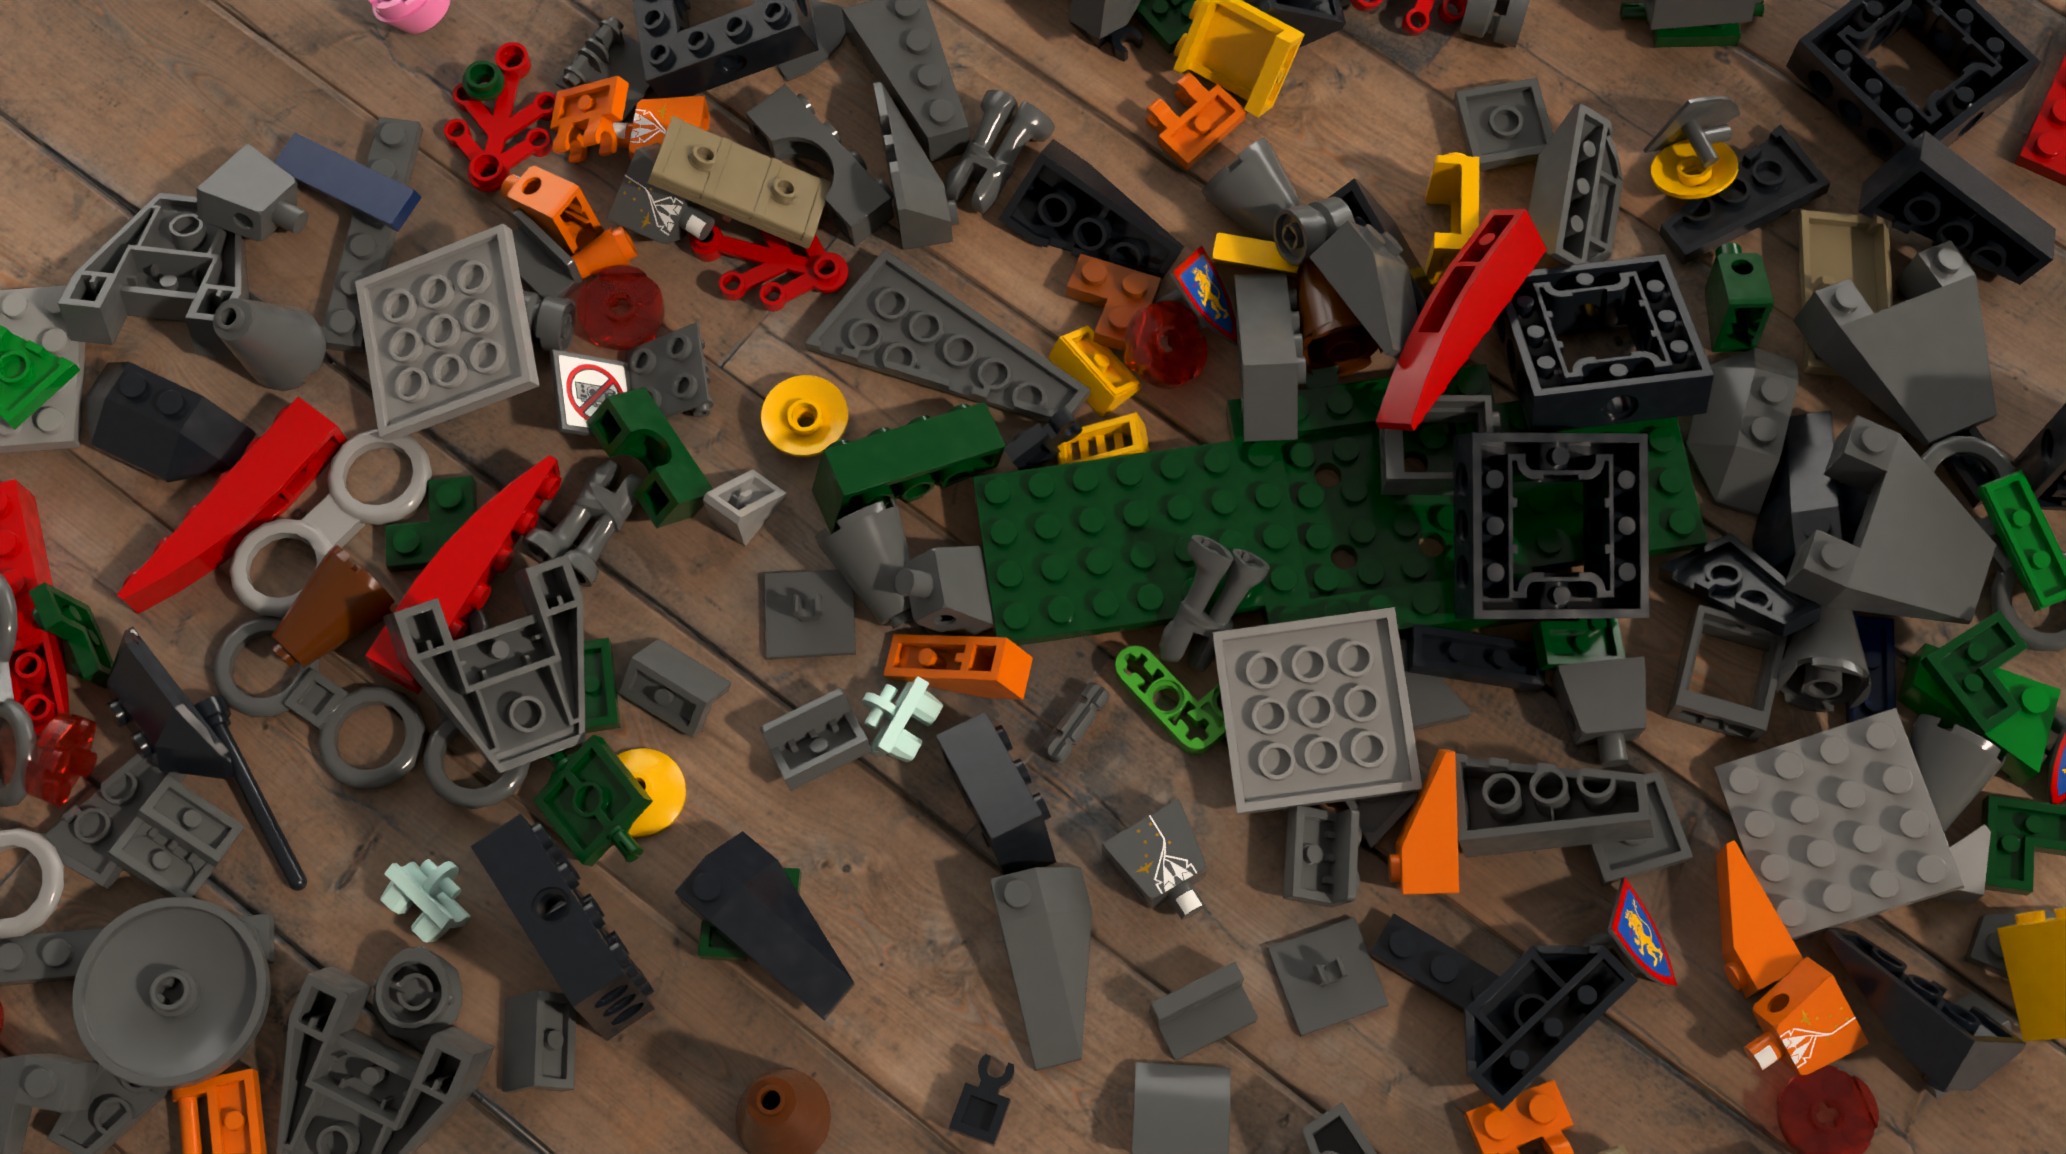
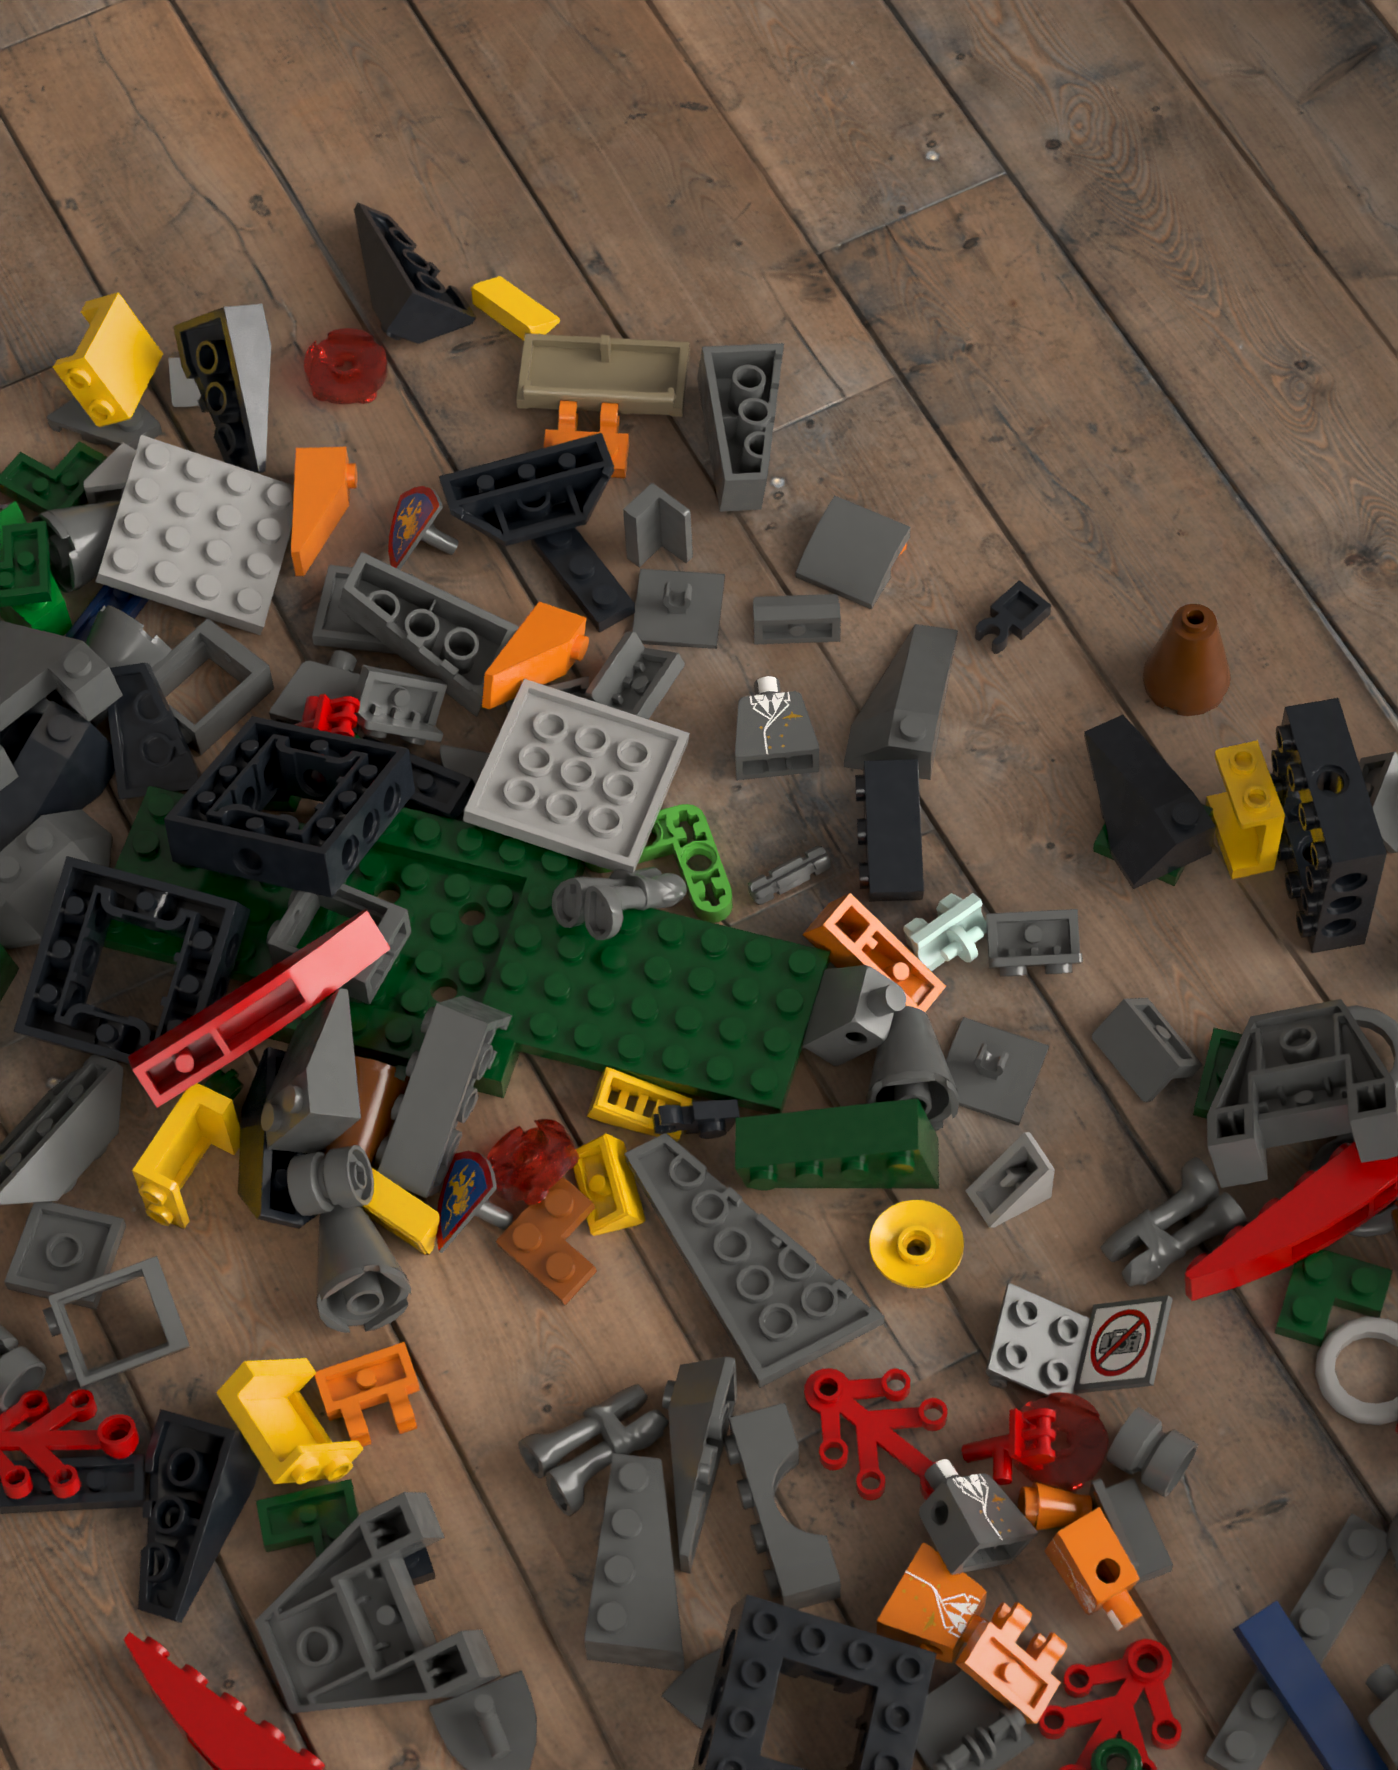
camera: 155 degrees left, 10 degrees down
(446, 333) = (1254, 1456): light grey plate -> none
(593, 801) = (1261, 961): dark green plate -> none
(636, 427) = (1092, 1285): dark green arch -> none
(646, 269) = (1027, 1442): none -> red arm
(658, 943) = (1249, 813): none -> yellow panel
(664, 786) = (1209, 993): yellow dish -> none
(739, 183) = (882, 1488): dark tan container -> none
(1082, 212) = (536, 1347): black wedge -> none
(1391, 1042) = (657, 521): none -> dark grey panel
(1418, 114) = (59, 1322): none -> dark grey window
(1525, 711) = (399, 704): none -> dark grey bracket
(1577, 652) = (331, 714): none -> red arm
(1804, 1022) = (313, 418): orange torso -> none

